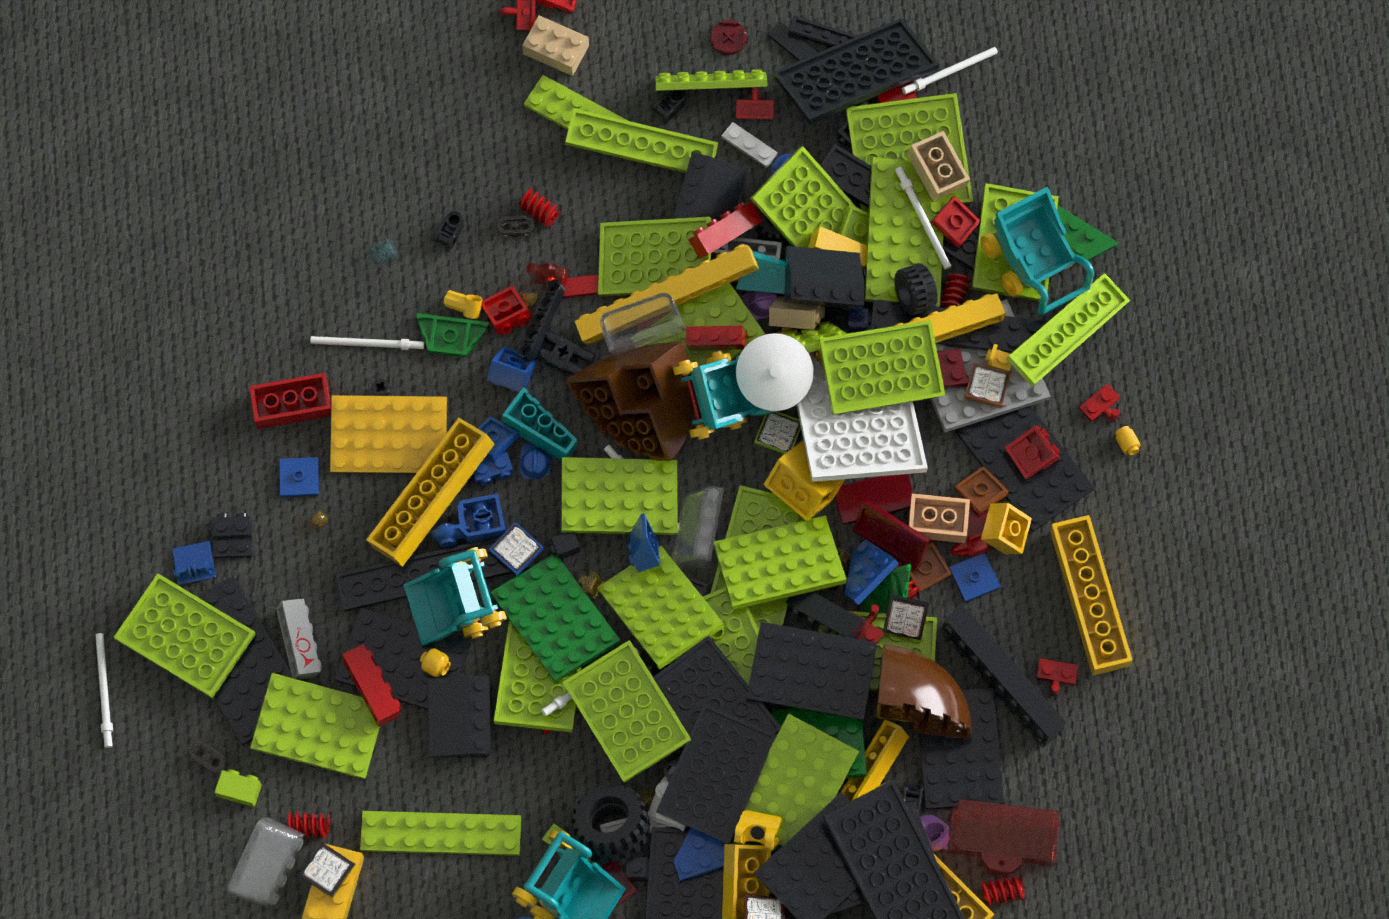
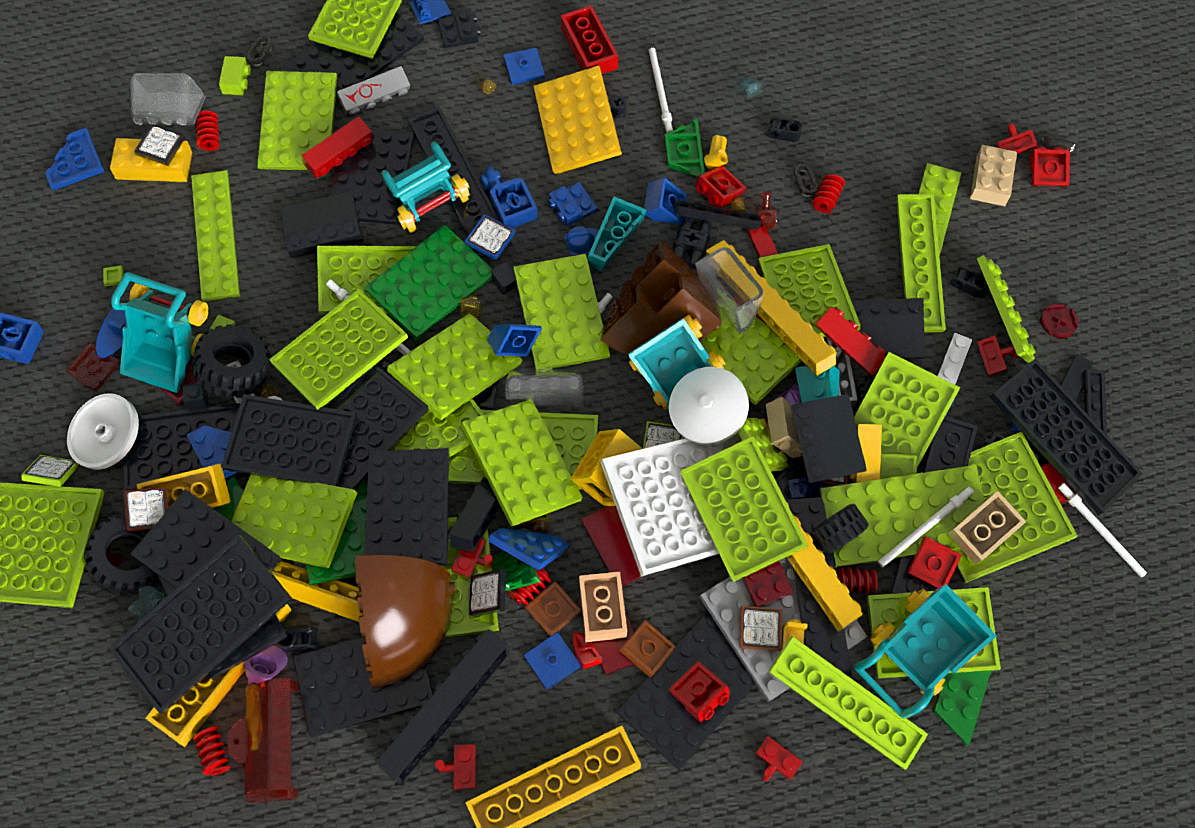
camera: 75 degrees right, 5 degrees down
(430, 491) = (526, 155): yellow brick -> none
(435, 662) = (366, 191): yellow head -> none
(500, 434) = (592, 198): blue tile -> none
(715, 337) = (737, 354): red brick -> none
(758, 828) = (238, 487): yellow piece -> none
(891, 534) = (574, 563): dark red tile -> none
(1006, 528) = (607, 679): yellow brick -> none
(1127, 440) = (742, 796): yellow brick -> none

